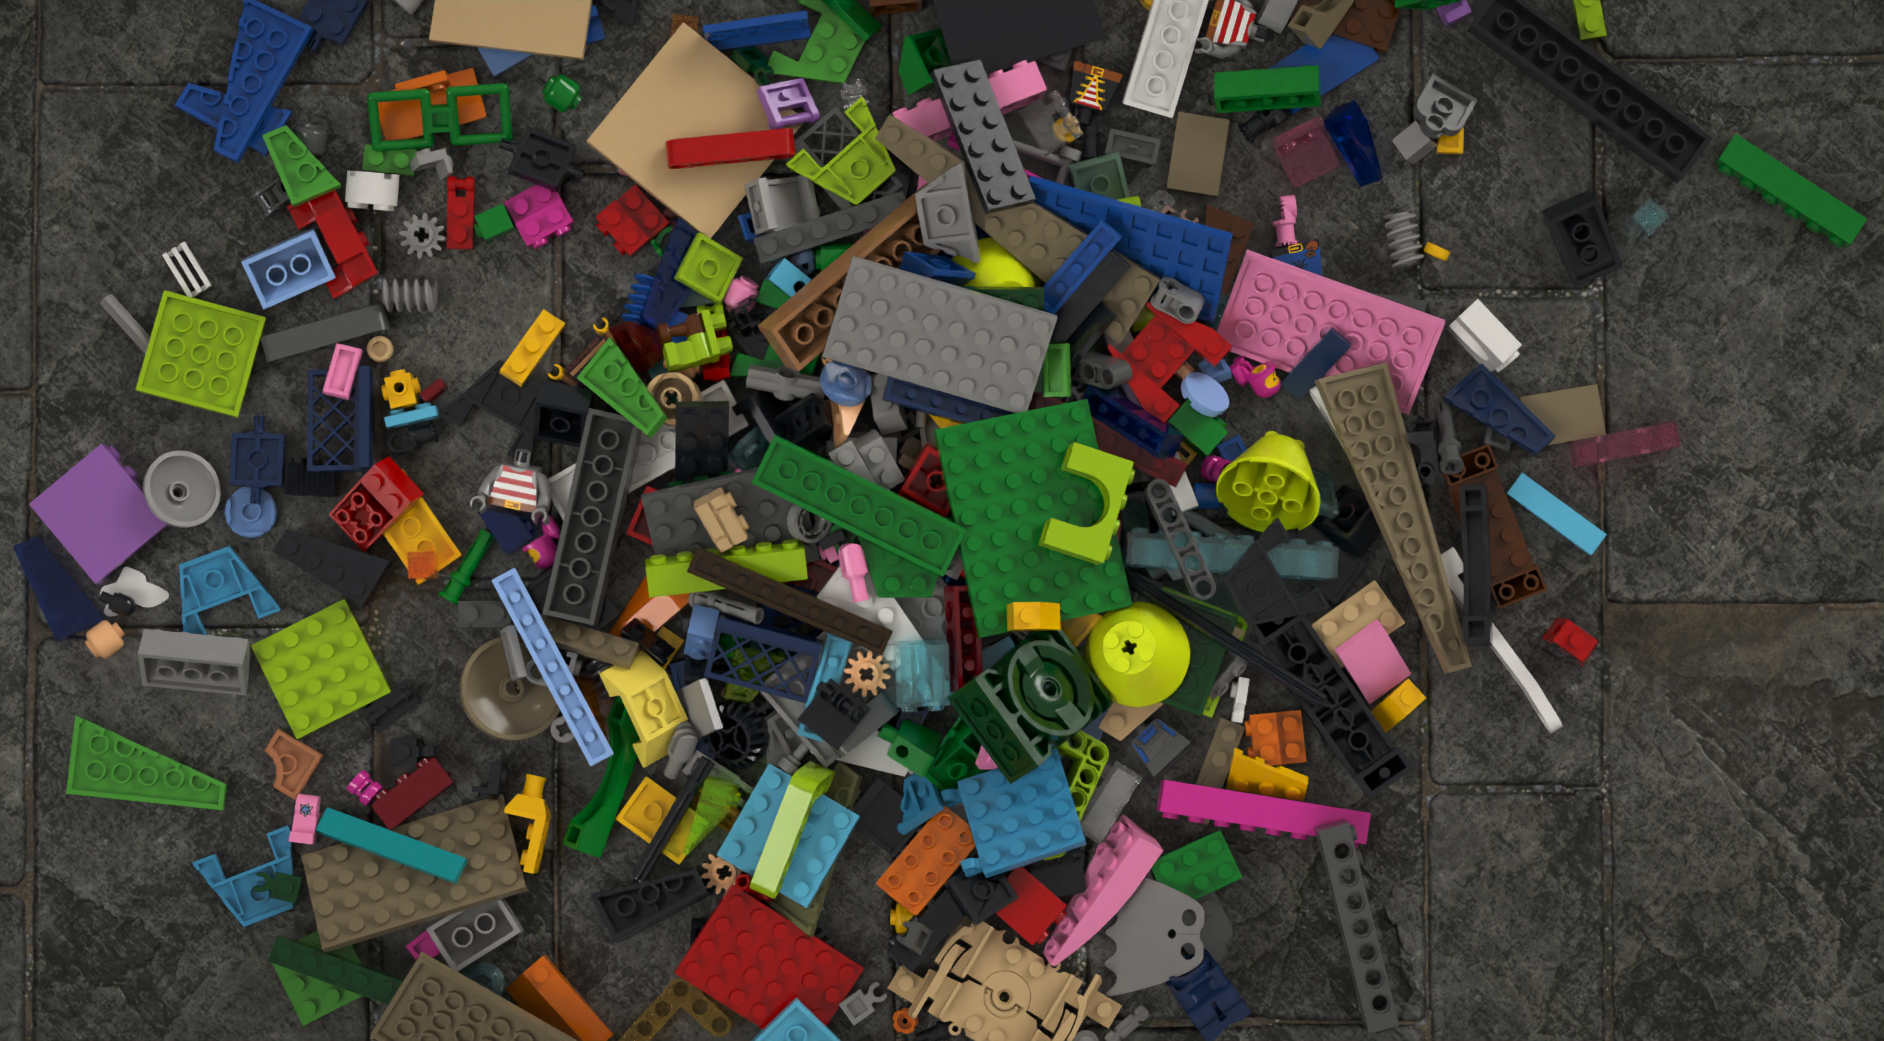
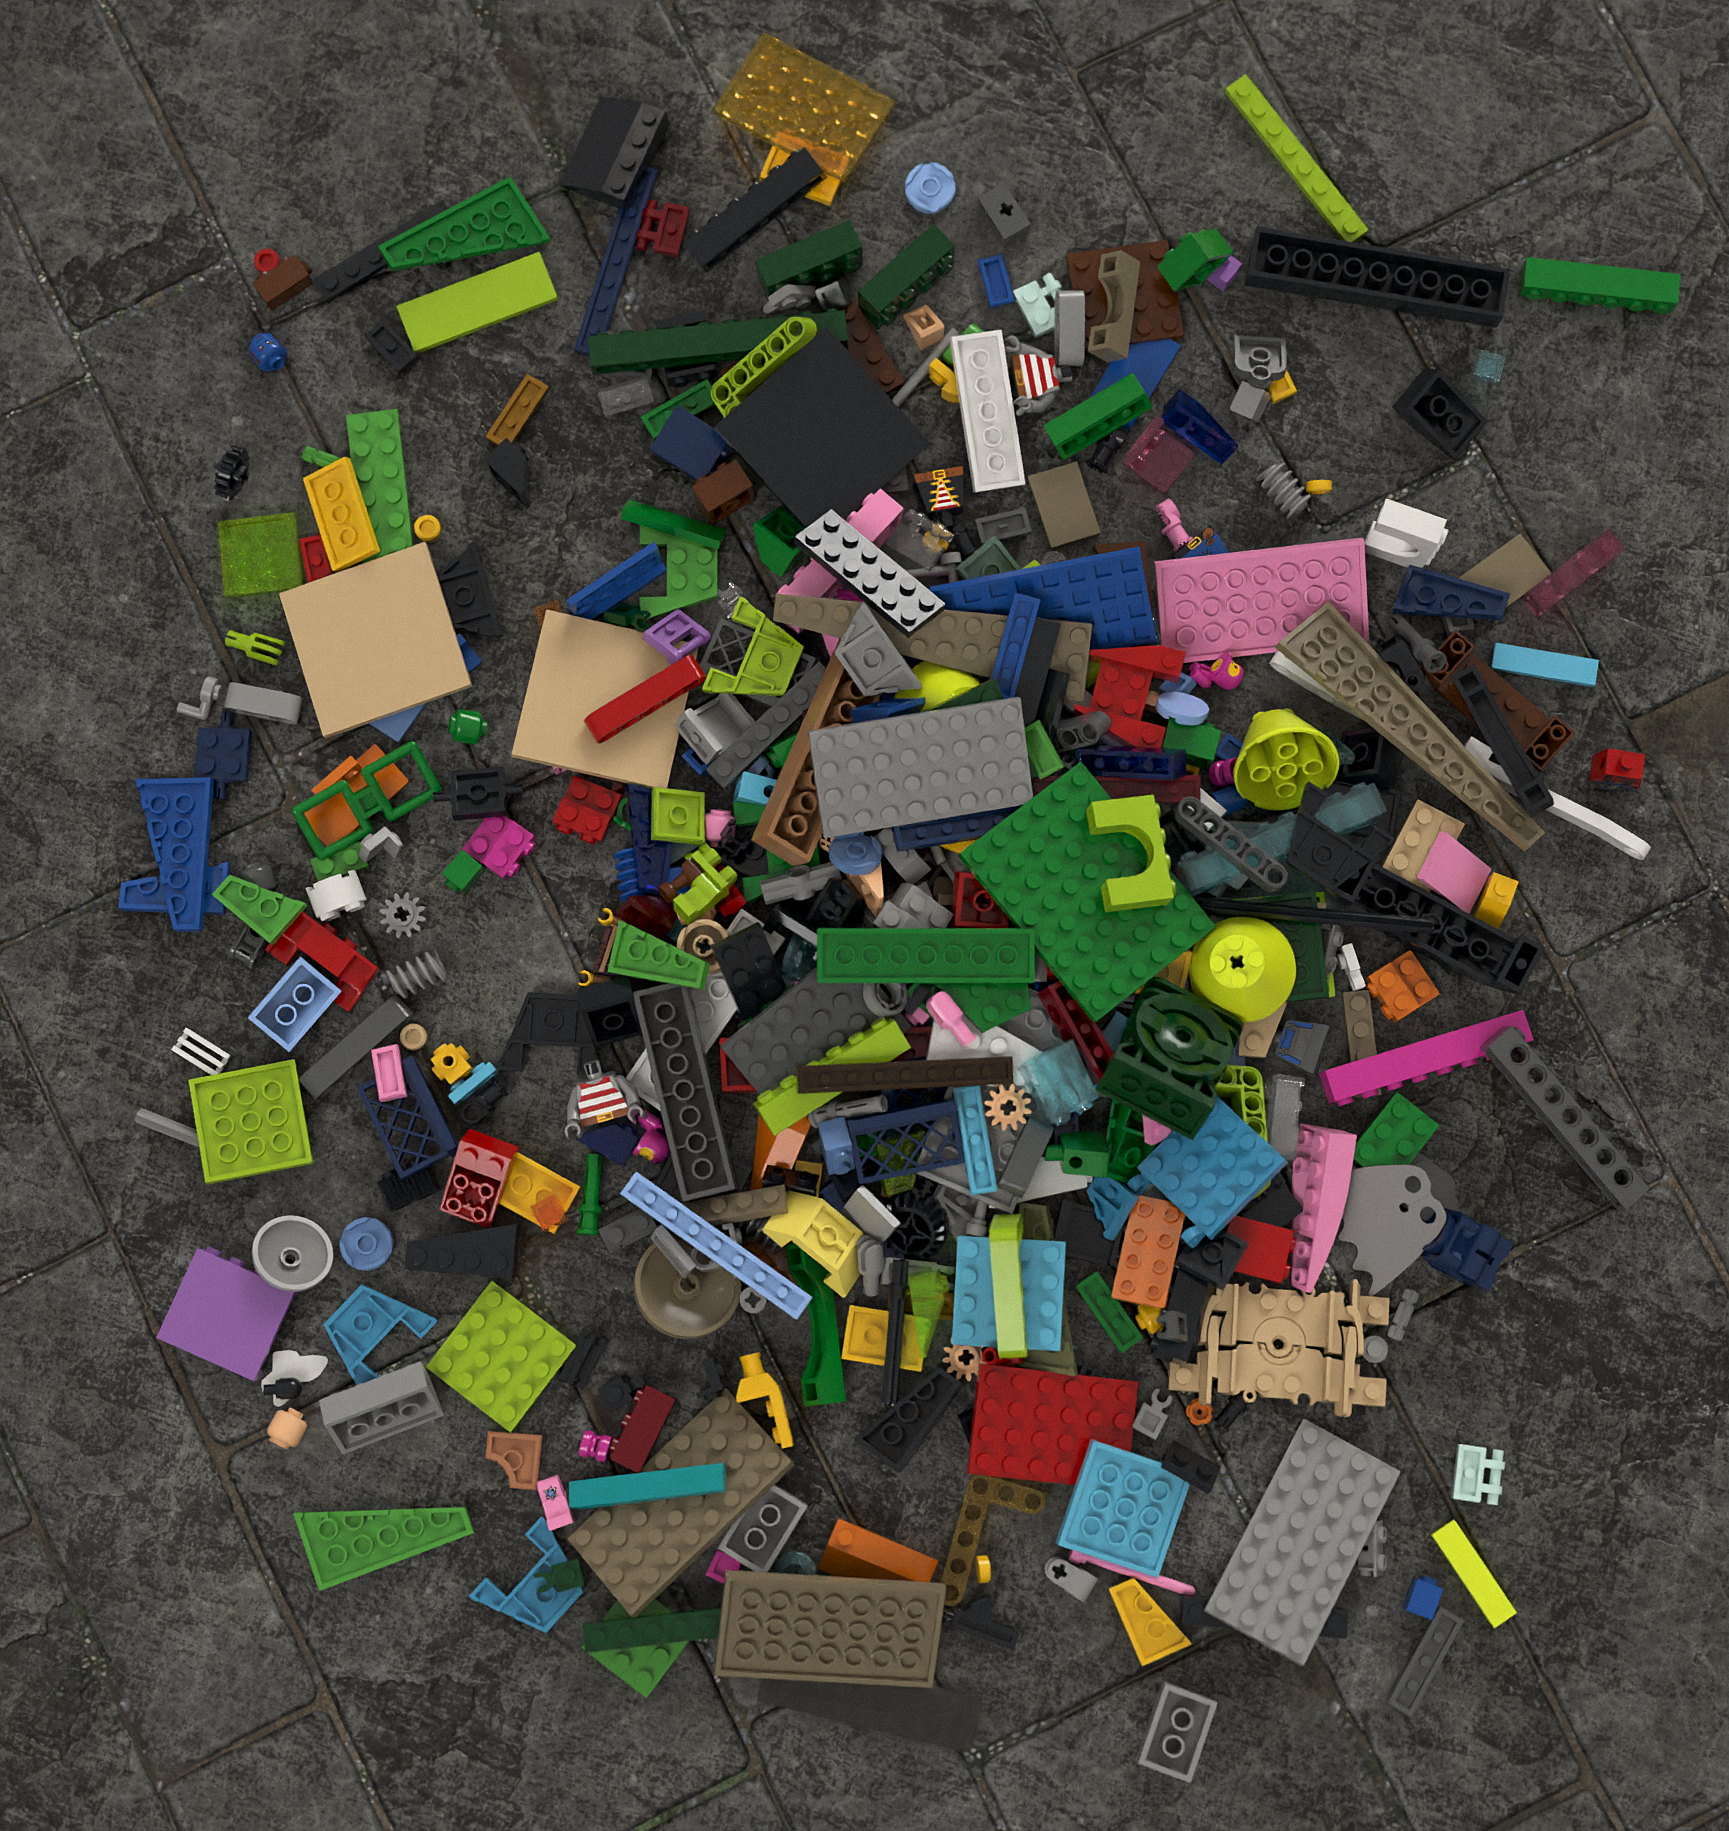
camera: 25 degrees left, 5 degrees down
(59, 597) = (222, 1408): clear blue wing -> none
(257, 459) = (349, 1192): dark blue plate -> none
(434, 391) = (482, 1049): dark red tile -> none
(460, 214) = (428, 880): red plate -> none
(532, 348) = (552, 967): yellow plate -> none
(721, 519) = (805, 1031): tan brick -> none
(833, 713) = (996, 1158): black hinge -> none
(869, 895) = (1108, 1312): none -> green plate
(1033, 616) = (1134, 978): yellow slope -> none
(1179, 301) = (1115, 635): light grey piece -> none
(1259, 778) = (1406, 1028): yellow wing -> none
(1315, 363) = (1264, 635): dark blue tile -> none

